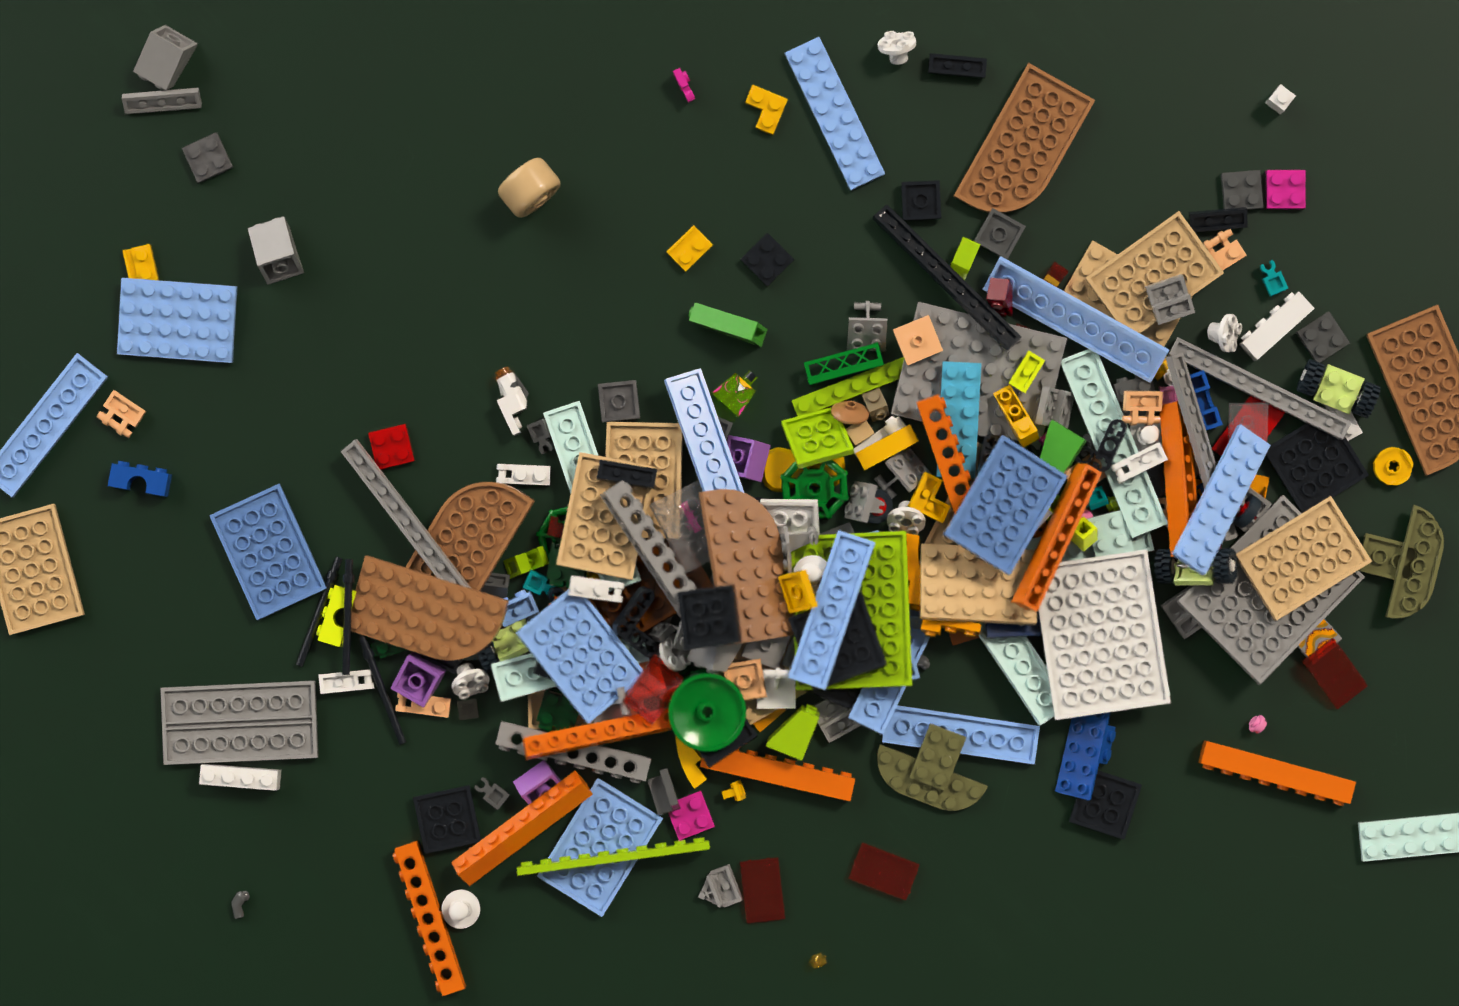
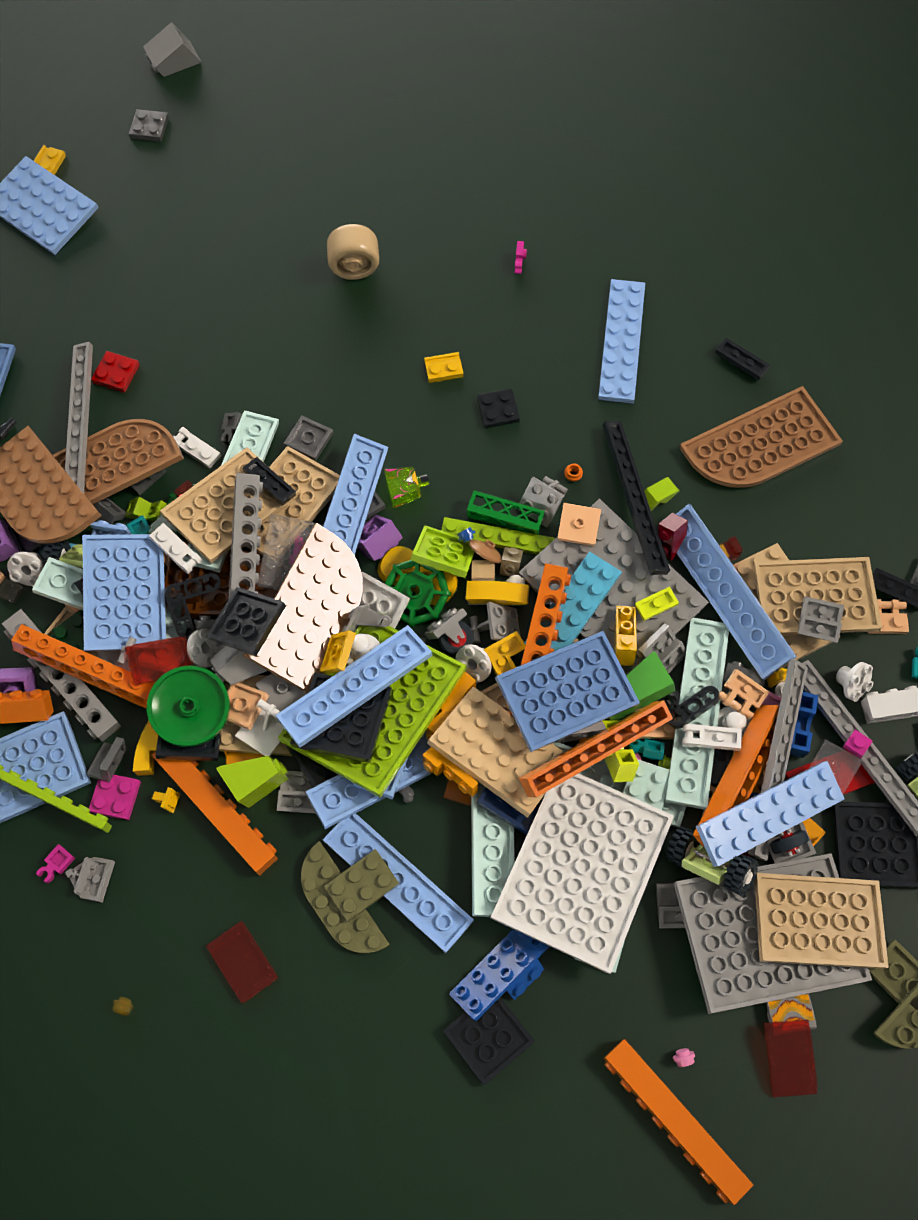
camera: 30 degrees right, 20 degrees down
(161, 100) = (147, 75): light grey plate -> none
(275, 250) = (142, 199): slope -> none
(514, 397) = (228, 390): white plate -> none
(685, 892) = (57, 861): none -> dark pink plate
(728, 324) = (435, 432): bright green slope -> none
(762, 890) = (124, 905): clear red piece -> none
(771, 106) = (574, 310): yellow plate -> none
(824, 409) = (466, 535): none -> blue plate
(880, 278) = (573, 468): none -> orange plate
(897, 46) = (702, 319): white plate -> none
(921, 200) = (651, 434): black plate -> none
(999, 234) = (701, 493): dark grey plate -> none
(1257, 391) = (857, 744): none -> dark pink plate

